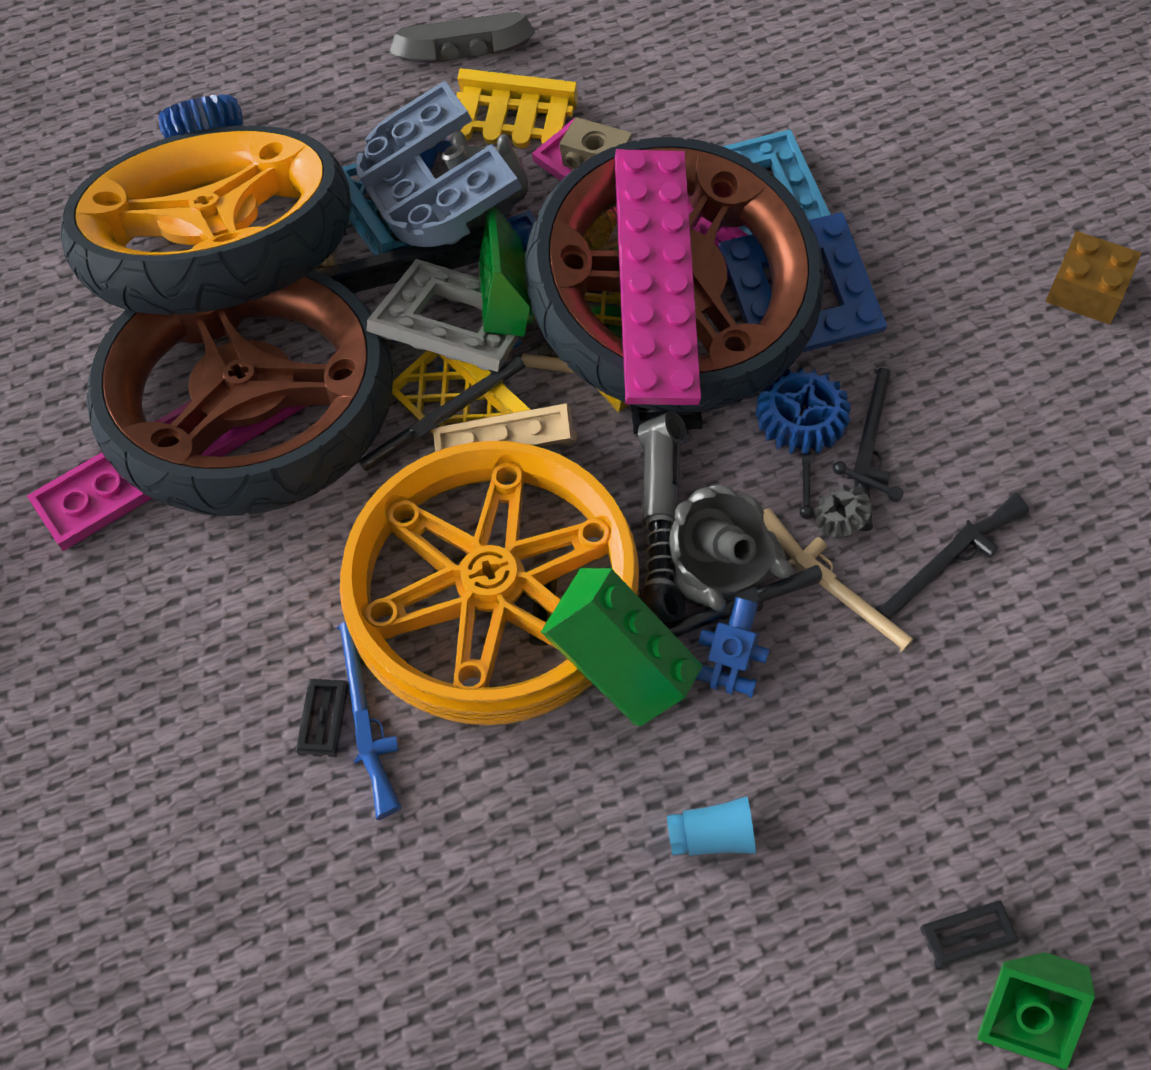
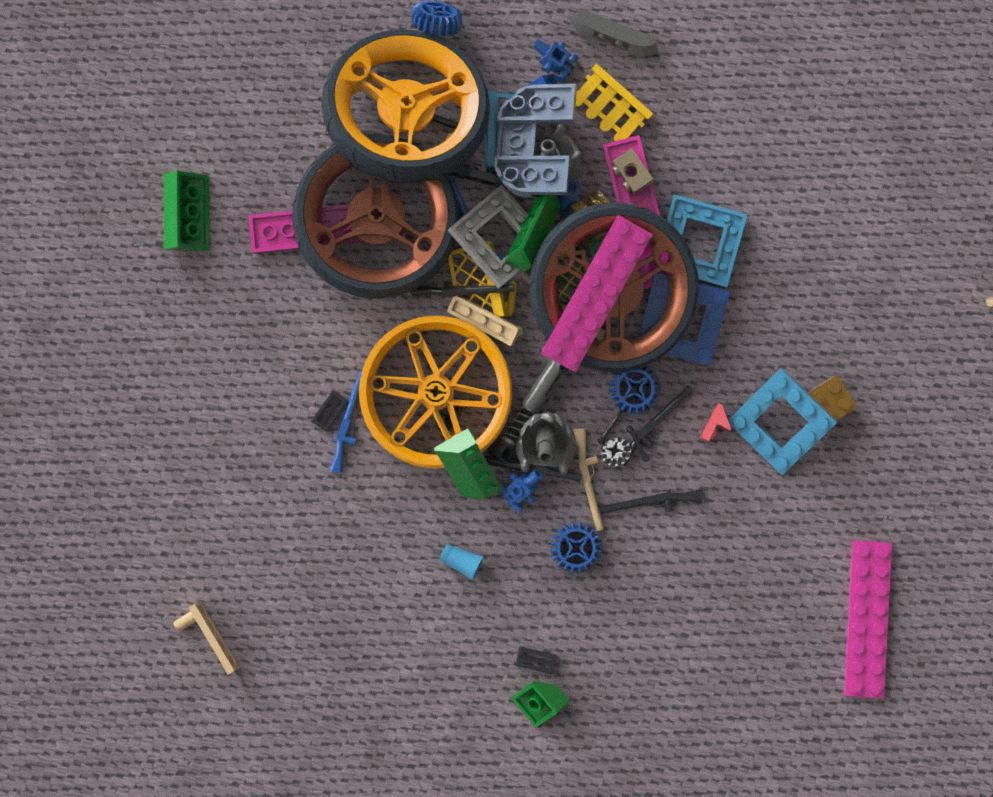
camera: 25 degrees right, 25 degrees up
(394, 91) = (556, 58): none -> blue piece
(524, 392) = (510, 304): none -> yellow piece
(924, 692) = (587, 559): none -> blue gear
(959, 388) = (717, 418): none -> coral slope
(1098, 378) = (782, 385): none -> dark azure plate

